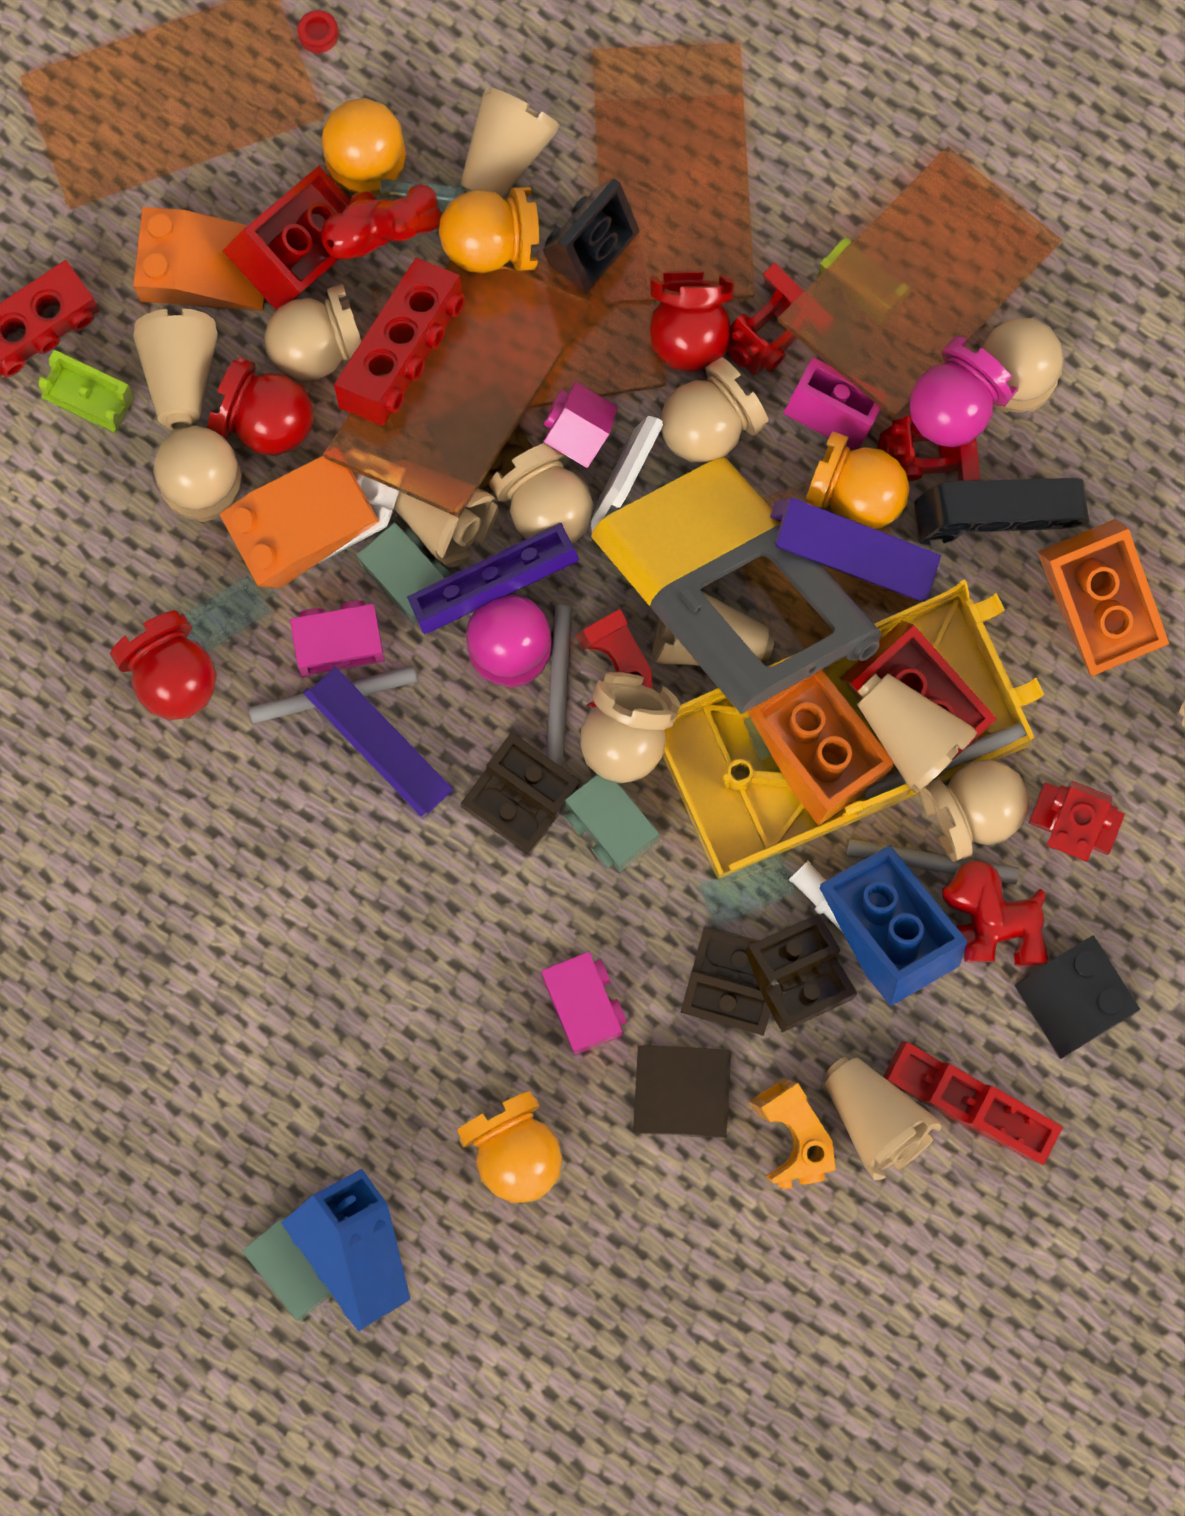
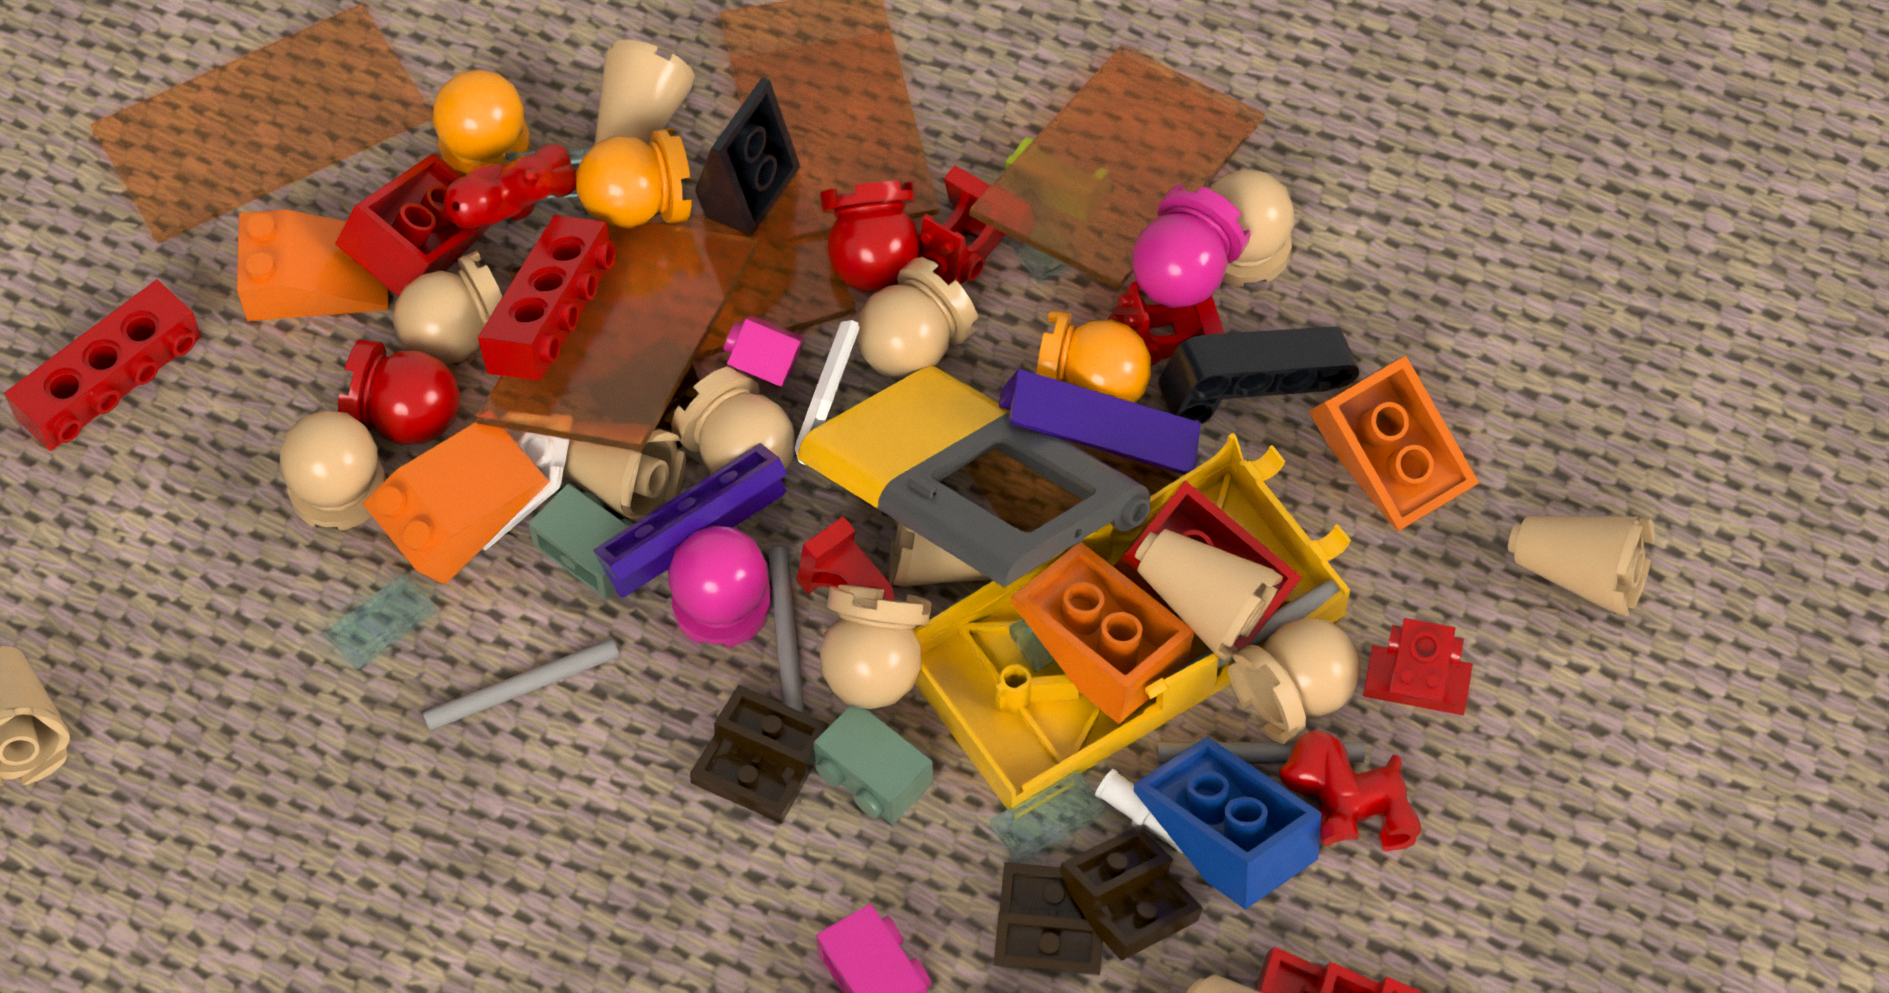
camera: 10 degrees left, 20 degrees down
(86, 392) = (194, 411): lime hinge -> none
(169, 672) = (317, 672): red tile -> none
(176, 362) = (293, 353): tan cone -> none
(318, 31) = (416, 37): red tile -> none
(337, 638) = (518, 620): dark pink brick -> none
(378, 742) = (581, 723): dark purple panel -> none
(832, 403) = (1039, 283): dark pink brick -> none
(1077, 997) = (1466, 867): black slope -> none

